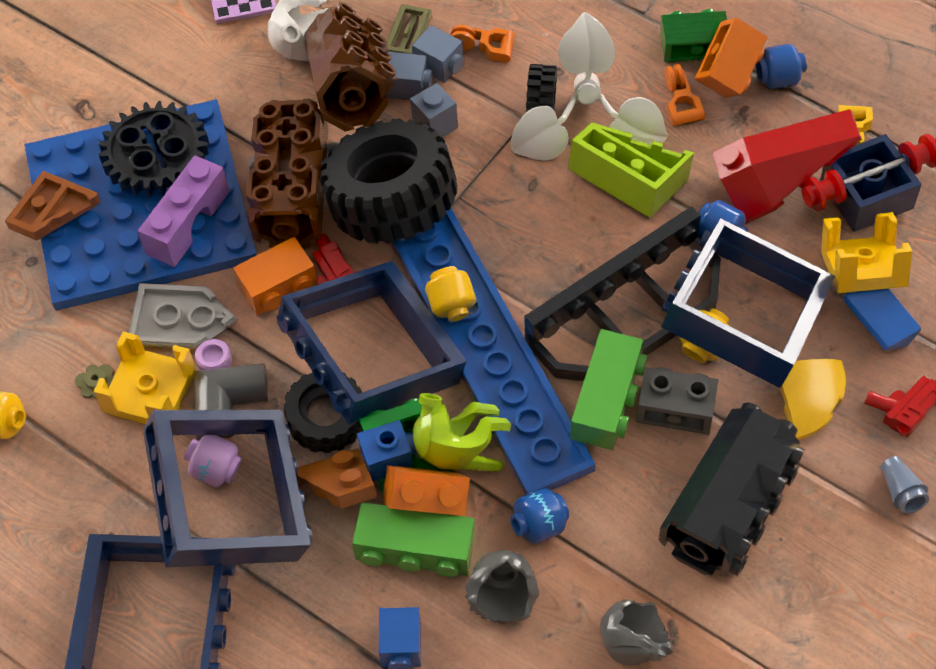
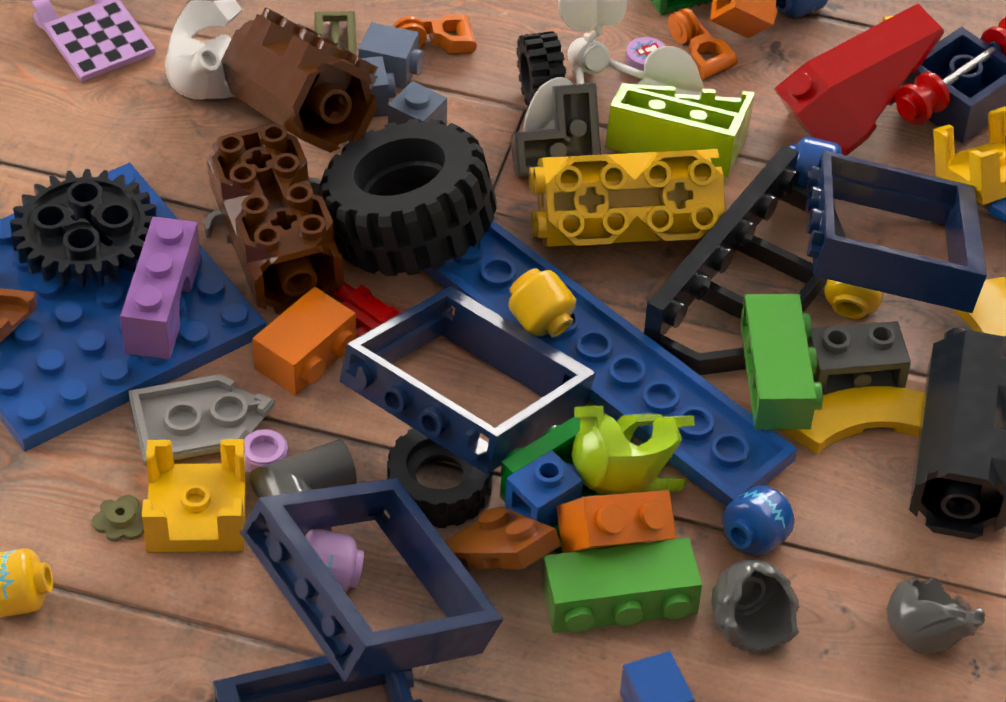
camera: 25 degrees left, 10 degrees down
(538, 162) = (574, 132): none -> dark grey brick
(554, 219) = (626, 197): none -> yellow brick
(635, 89) = (639, 50): none -> lavender tile
(660, 441) = (859, 408): none -> yellow tile

